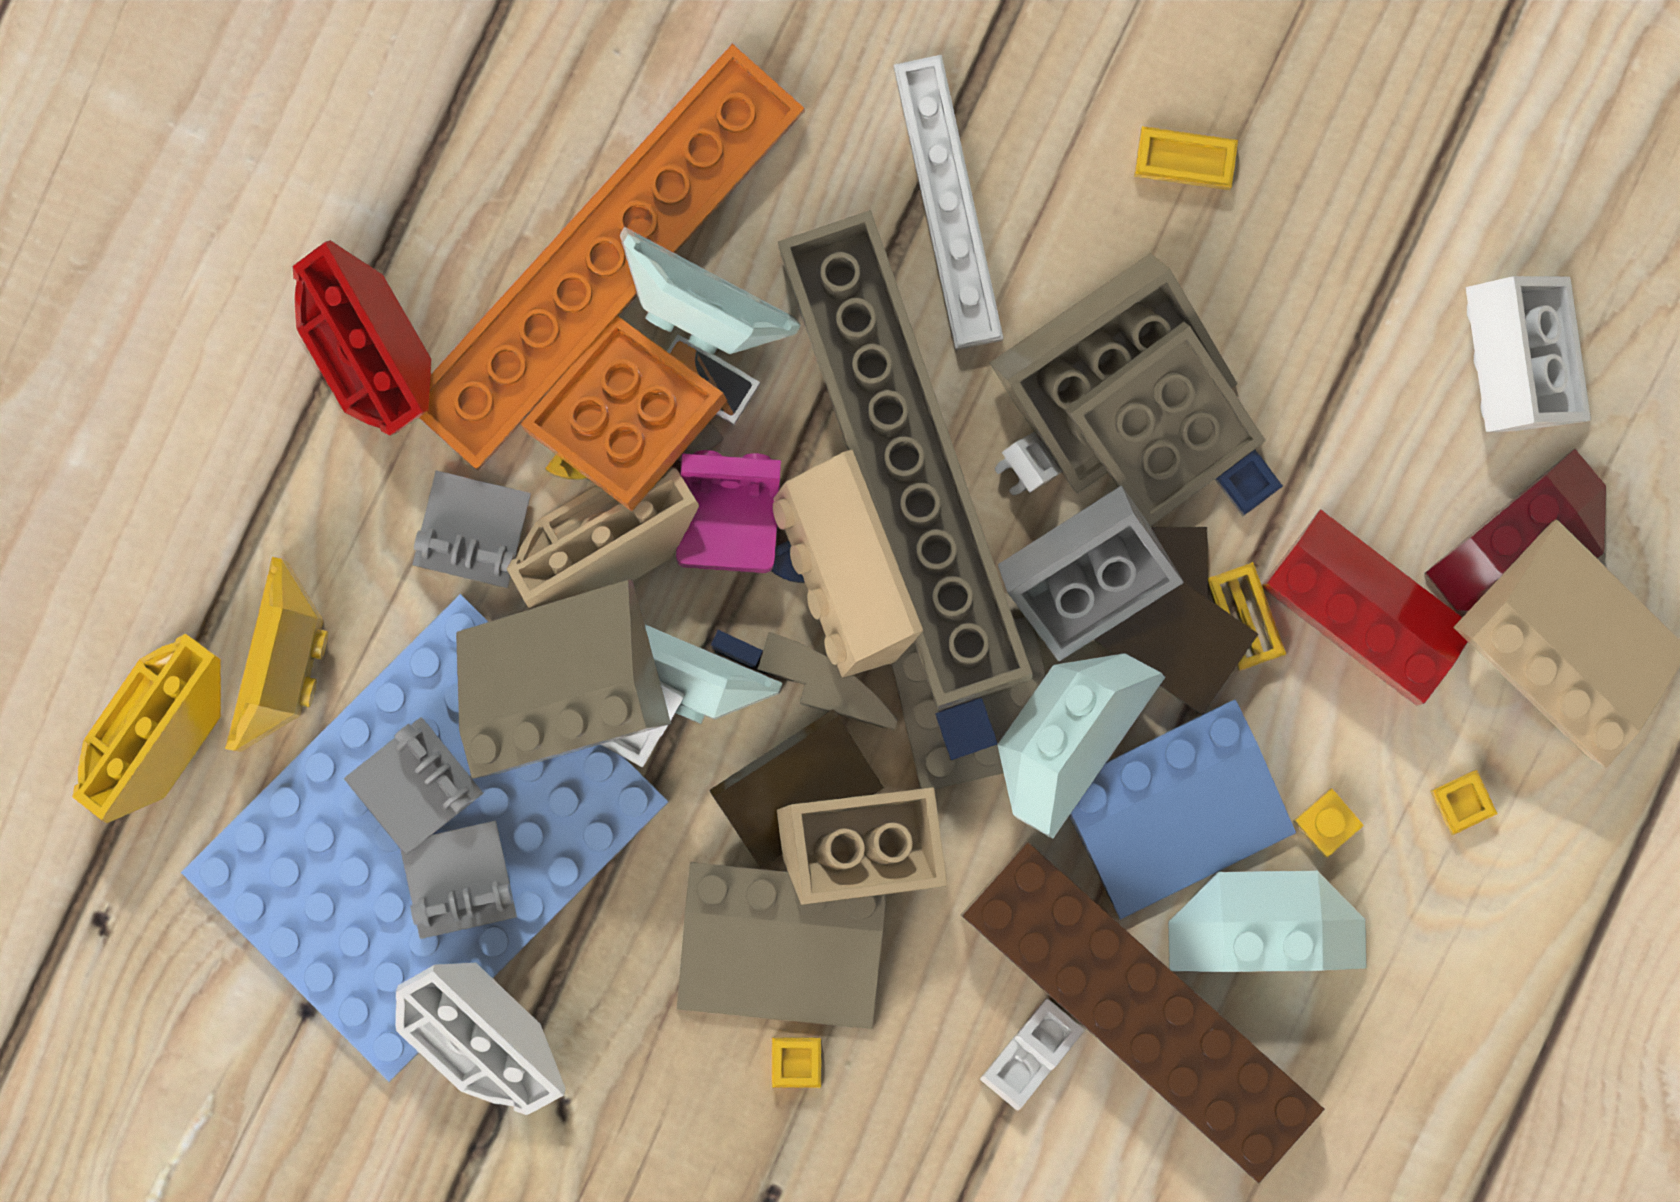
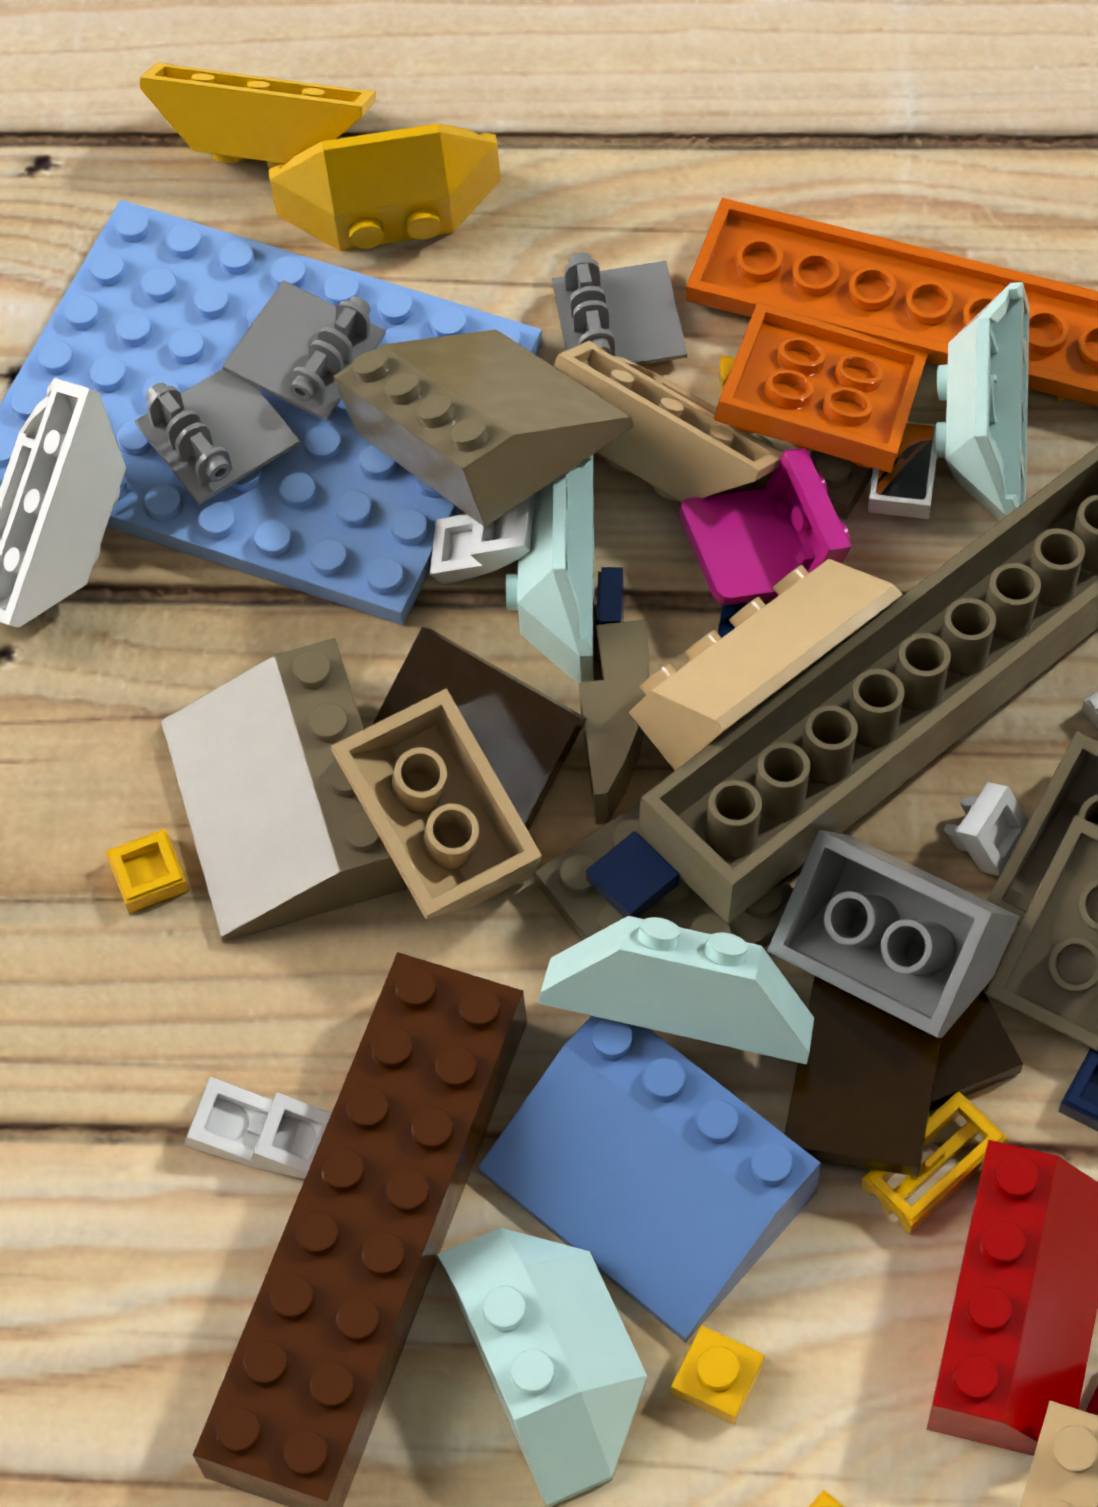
camera: 75 degrees right, 25 degrees down
(361, 339) = (780, 128): red wedge -> none

